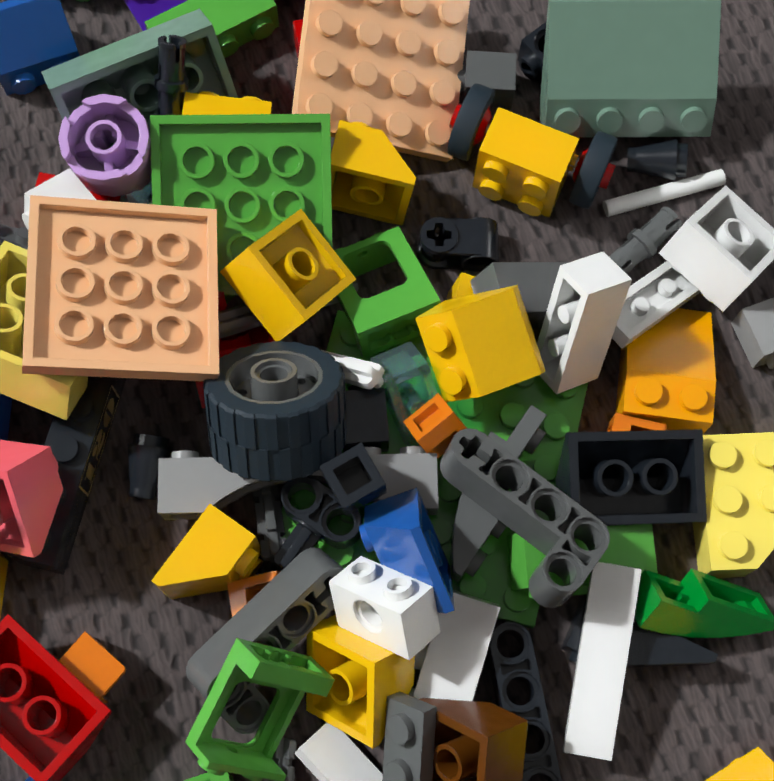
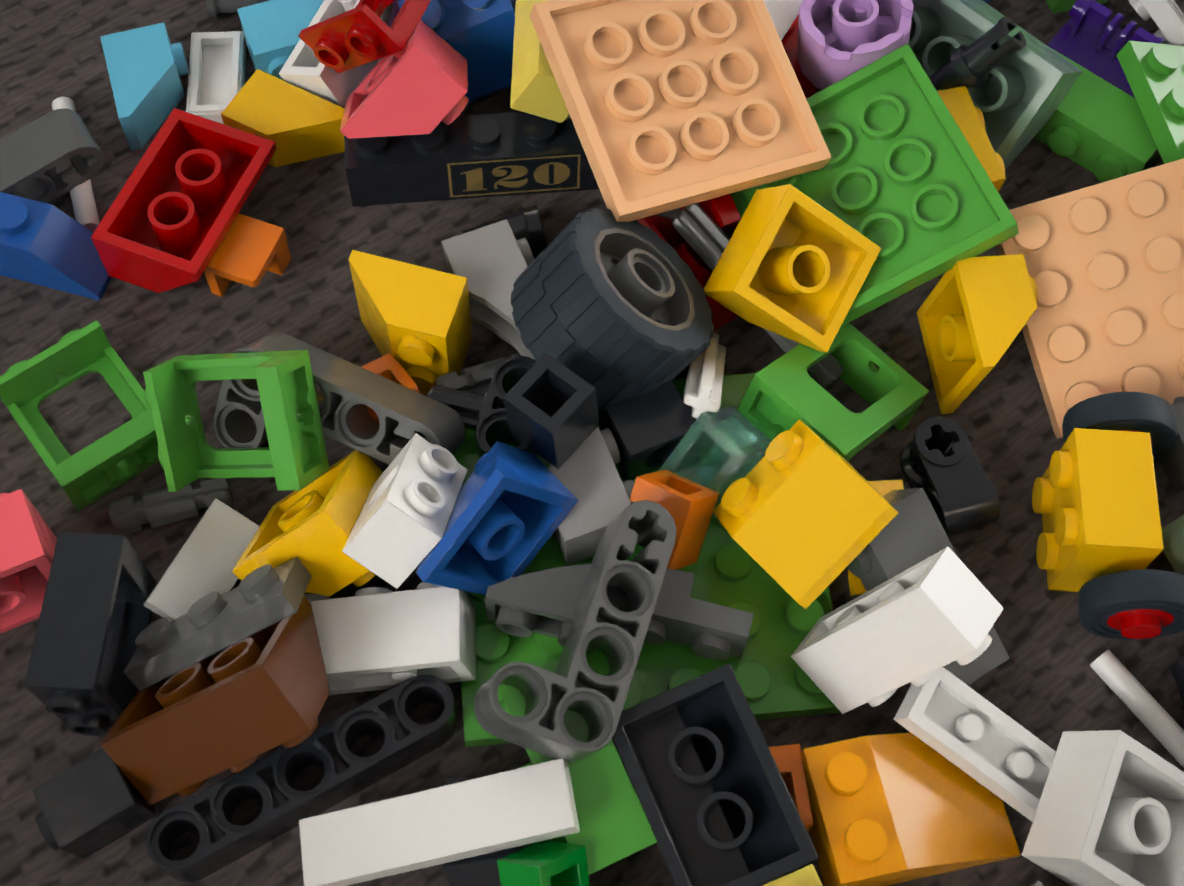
camera: 70 degrees right, 10 degrees down
(643, 242) = (1060, 712): dark grey pin -> none

